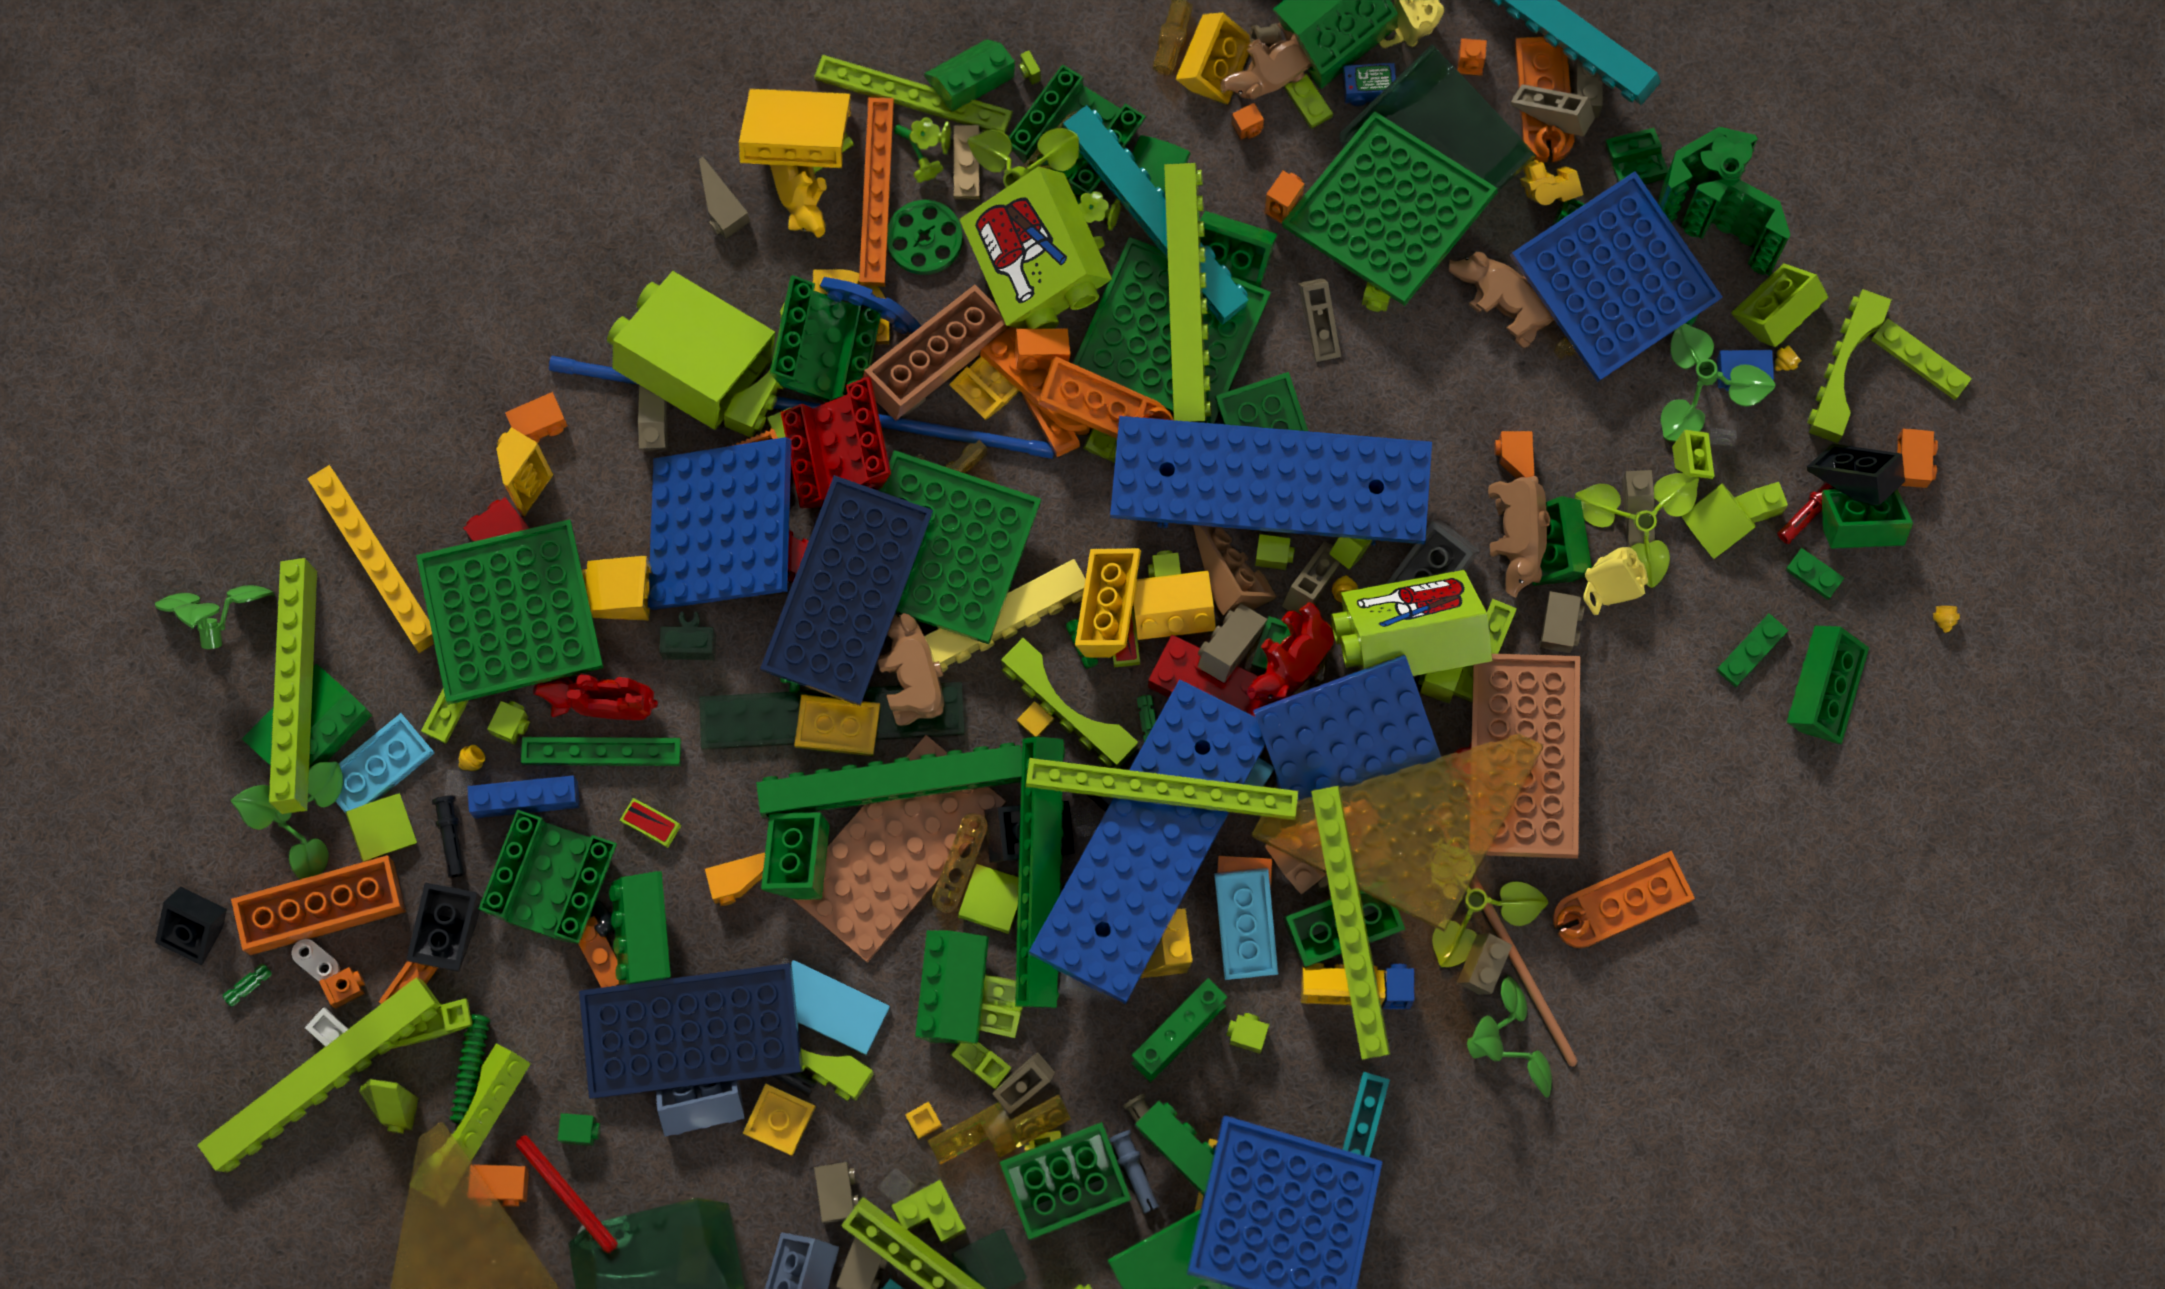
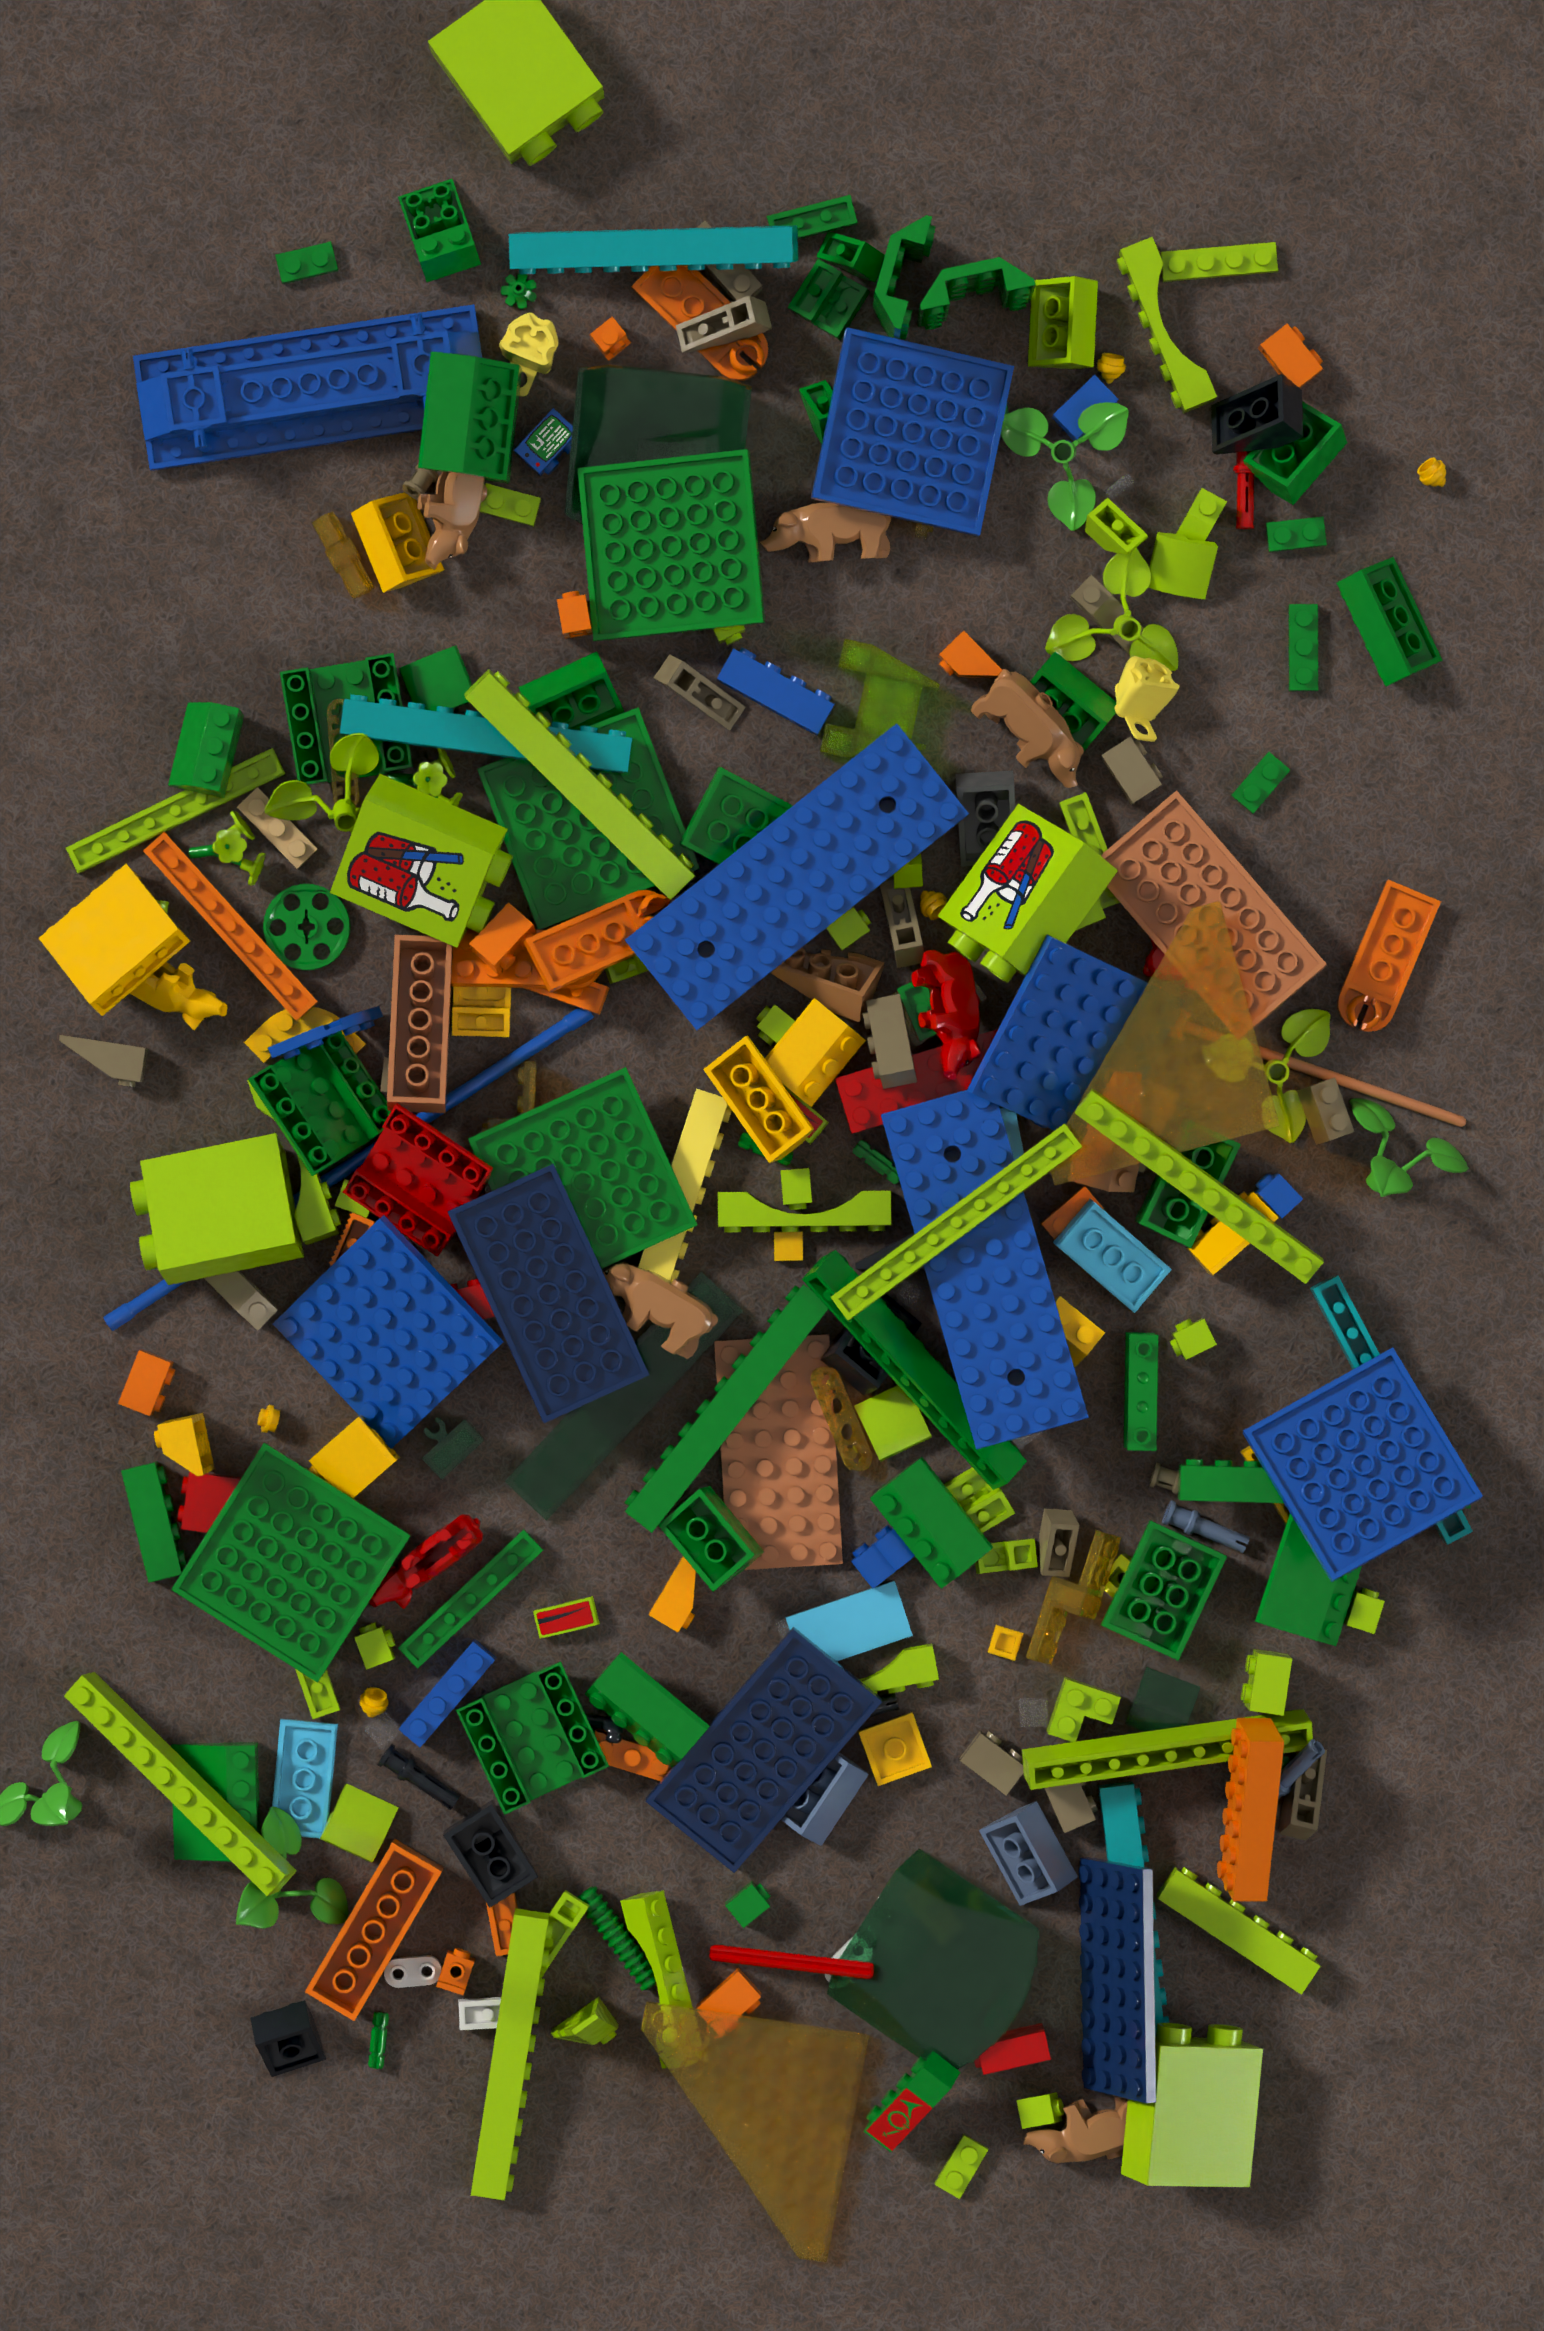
camera: 45 degrees left, 15 degrees up
(373, 557) = (131, 1619): yellow brick -> none
(452, 507) = (153, 1521): none -> green brick
(590, 514) = (268, 1419): none -> yellow plate
(837, 725) = (640, 1405): yellow tile -> none
(896, 981) = (881, 1557): none -> blue brick
(1029, 68) = (250, 697): lime plate -> none
(1077, 685) = (796, 1188): none -> lime brick
(1247, 122) = (478, 573): orange plate -> none
(1370, 362) = (776, 692): none -> blue brick
(1446, 425) = (888, 698): none -> clear neon green wedge
(1546, 187) = (786, 399): yellow hips -> none
(1641, 711) = (1260, 782): none -> green plate
(1674, 136) = (851, 256): none -> green slope
(1679, 105) = (818, 217): none -> green plate
(1727, 154) = (918, 257): green plate -> none

